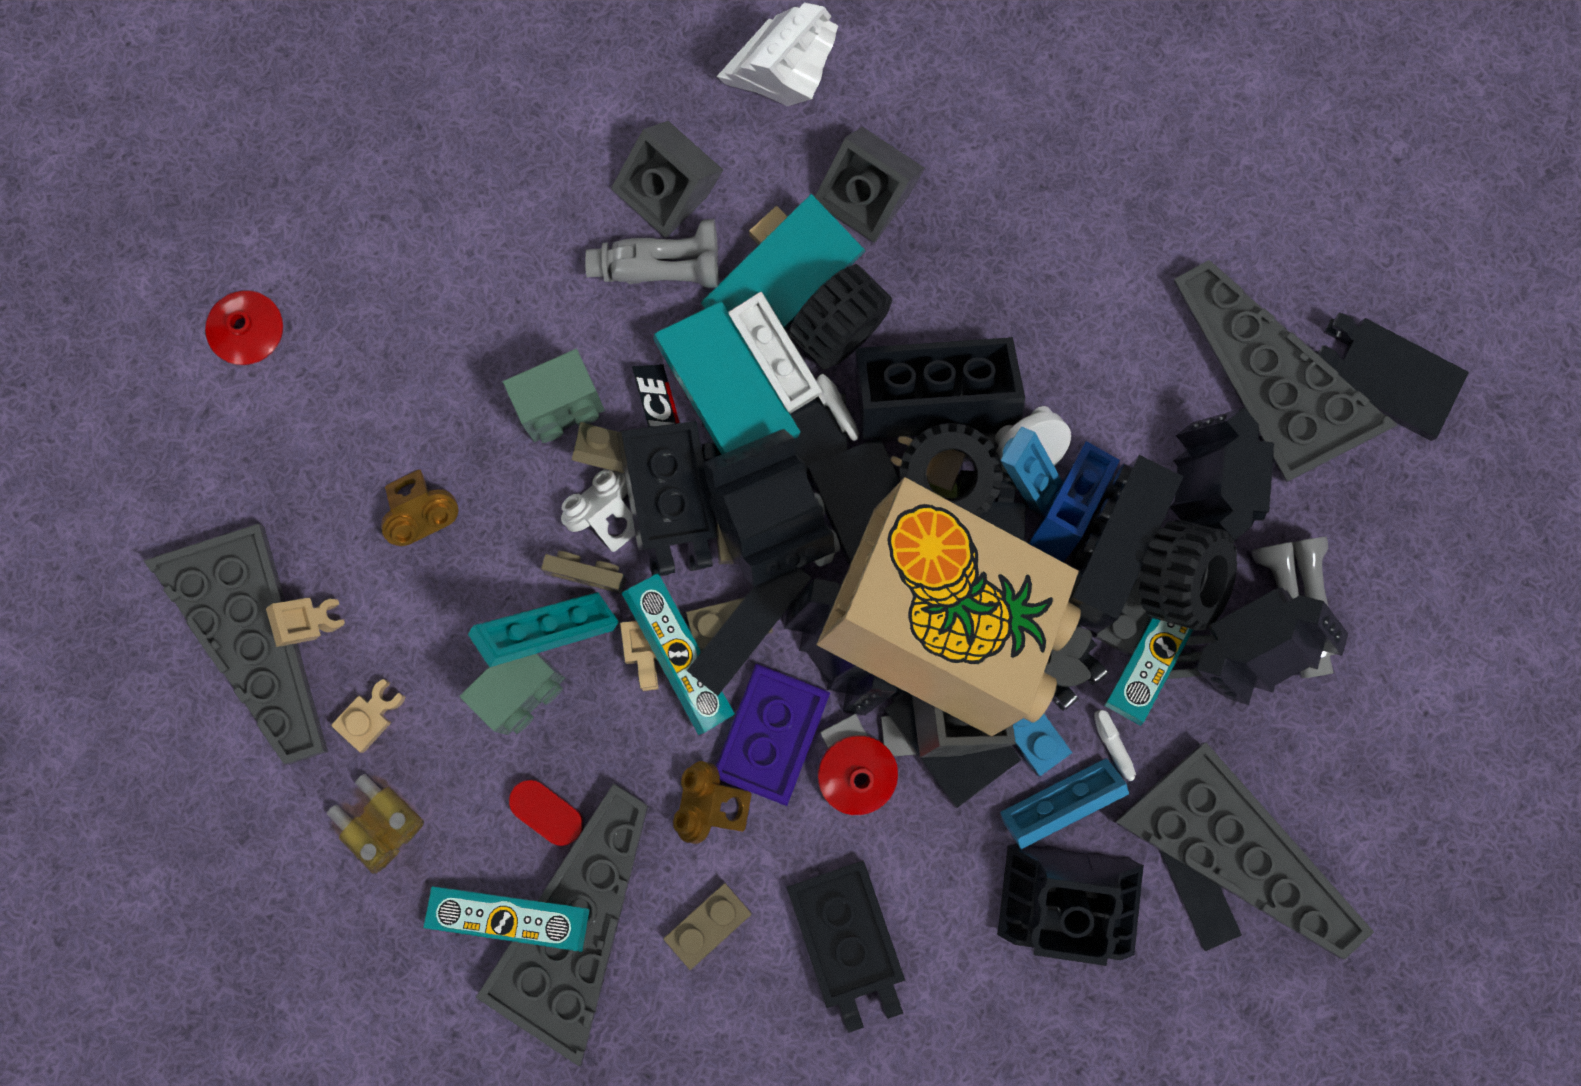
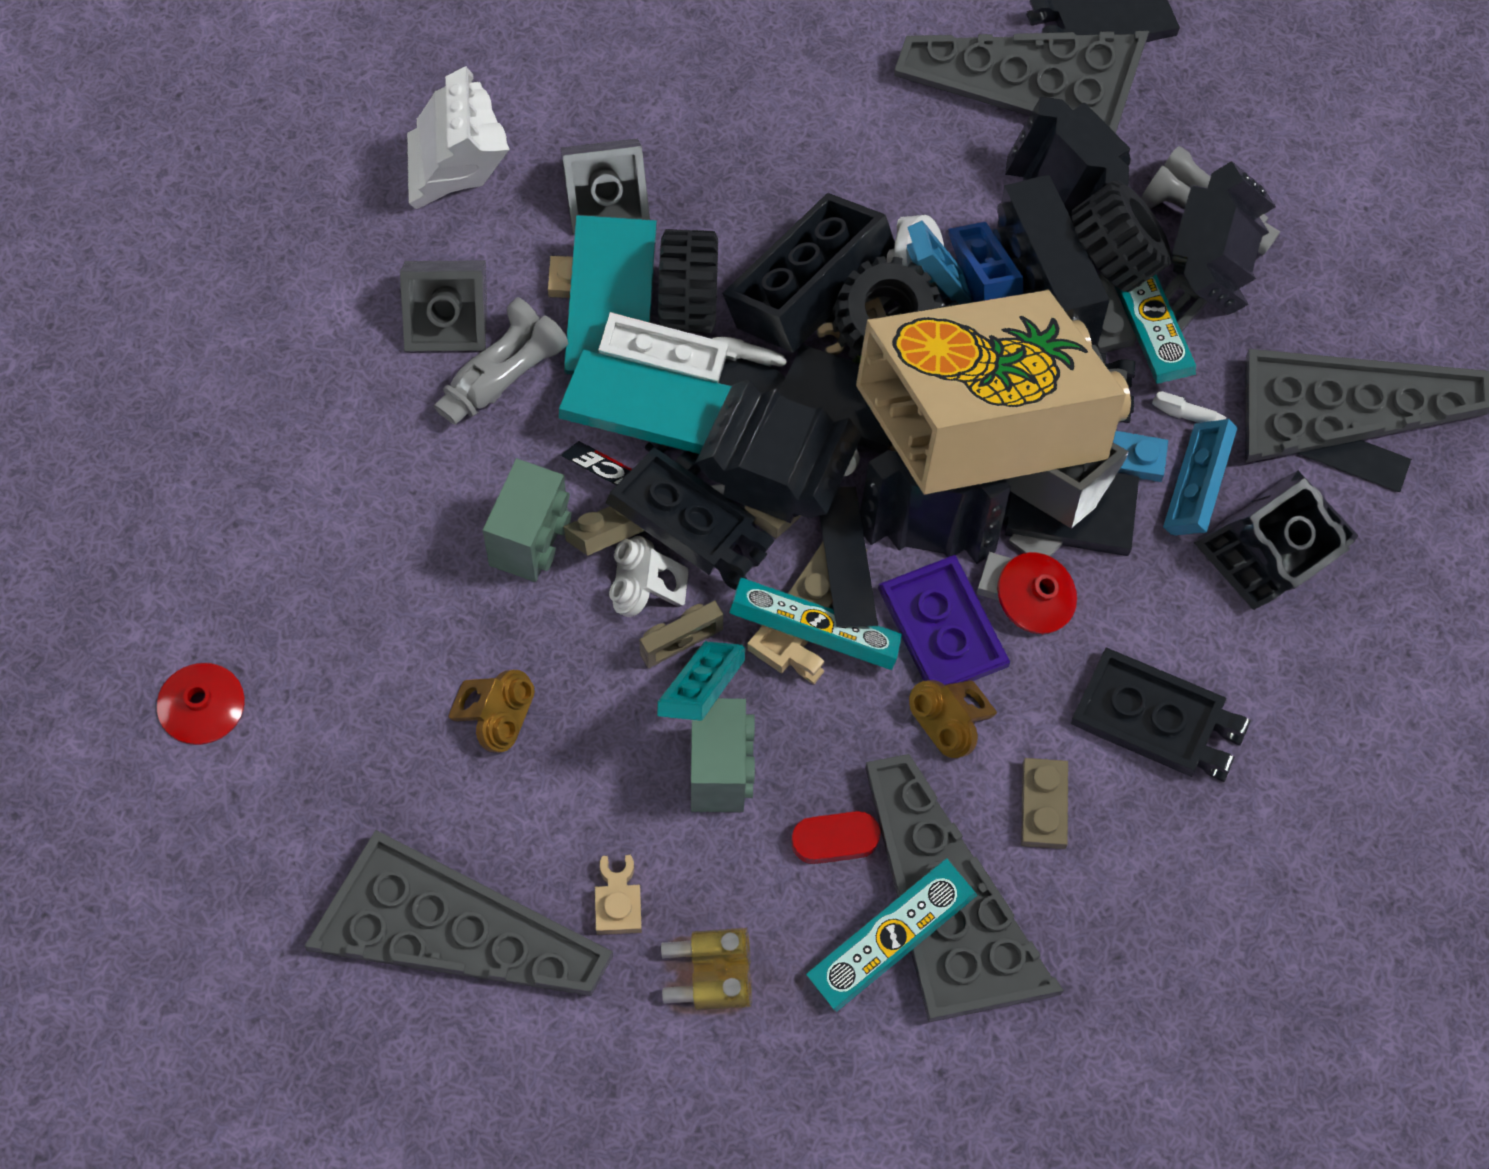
camera: 45 degrees left, 15 degrees down
(300, 622) = (490, 869): tan plate -> none

